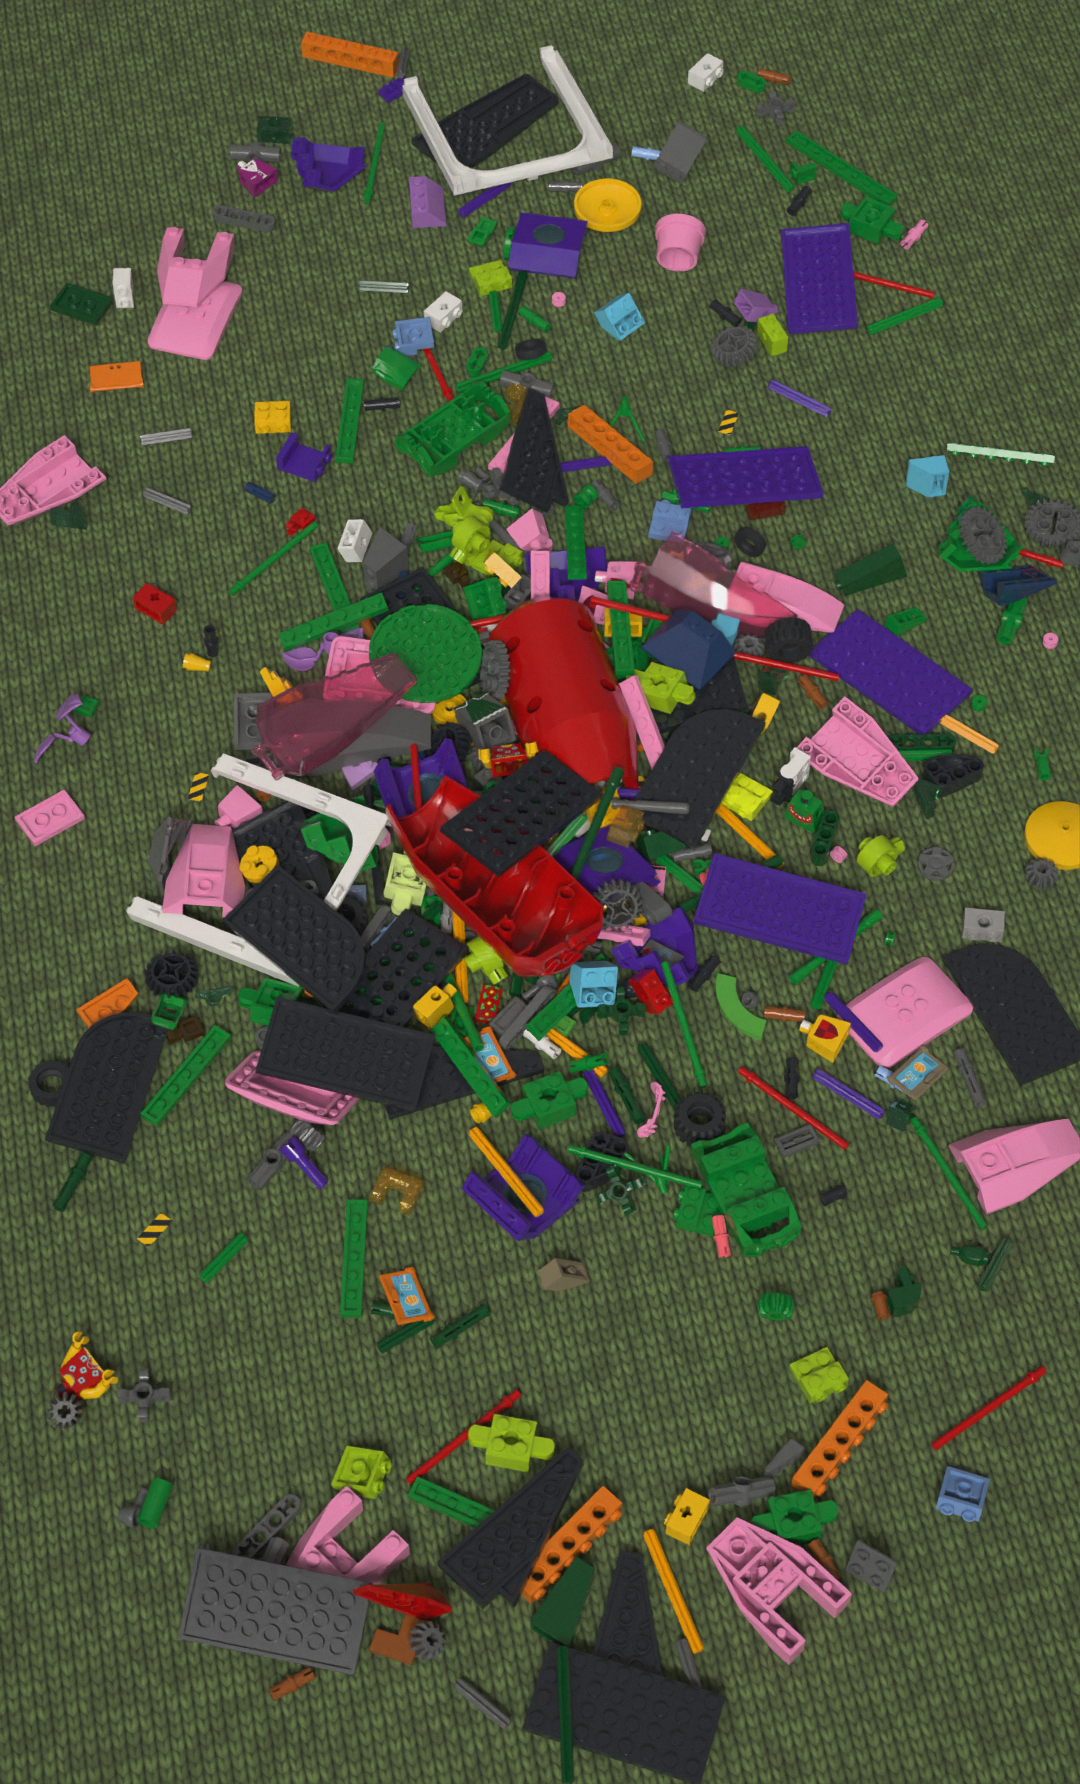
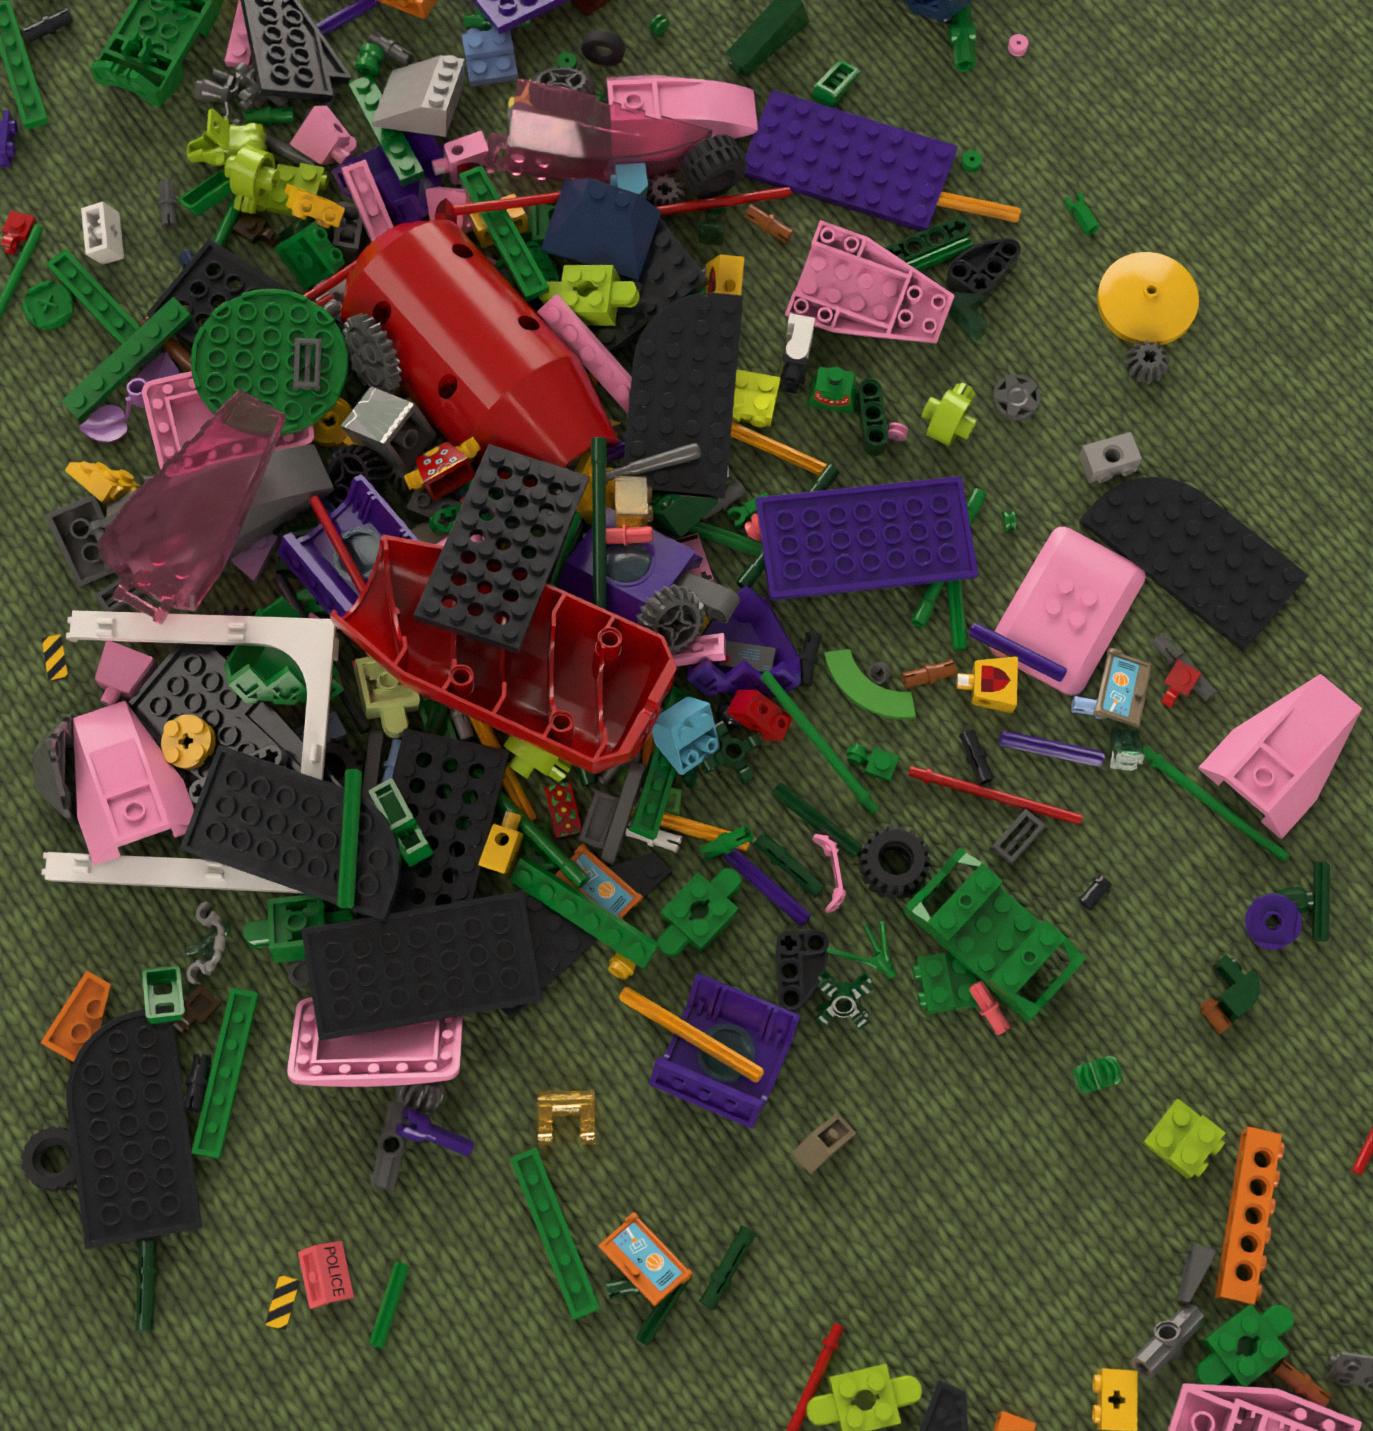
camera: 25 degrees left, 15 degrees up
(164, 1073) = (197, 1083): none -> black pin
(175, 965) = (137, 949): black gear -> none
(191, 1221) = (325, 1274): none -> coral panel
(220, 979) = (219, 944): none -> light grey piece
(298, 573) = (48, 305): none -> green tile
(334, 950) = (349, 838): none -> green axle
(375, 962) = (408, 833): none -> green slope
(384, 561) = (154, 249): dark grey slope -> none
(443, 674) = (307, 385): none -> dark grey tile
(584, 1152) = (847, 963): green bar -> none
(610, 529) = (422, 96): none -> light grey slope
(612, 842) = (629, 535): none -> coral axle
(720, 1058) = (879, 765): none -> green plate
(956, 1271) = (1284, 933): none -> dark purple plate
(962, 1083) = (1182, 680): none -> red plate

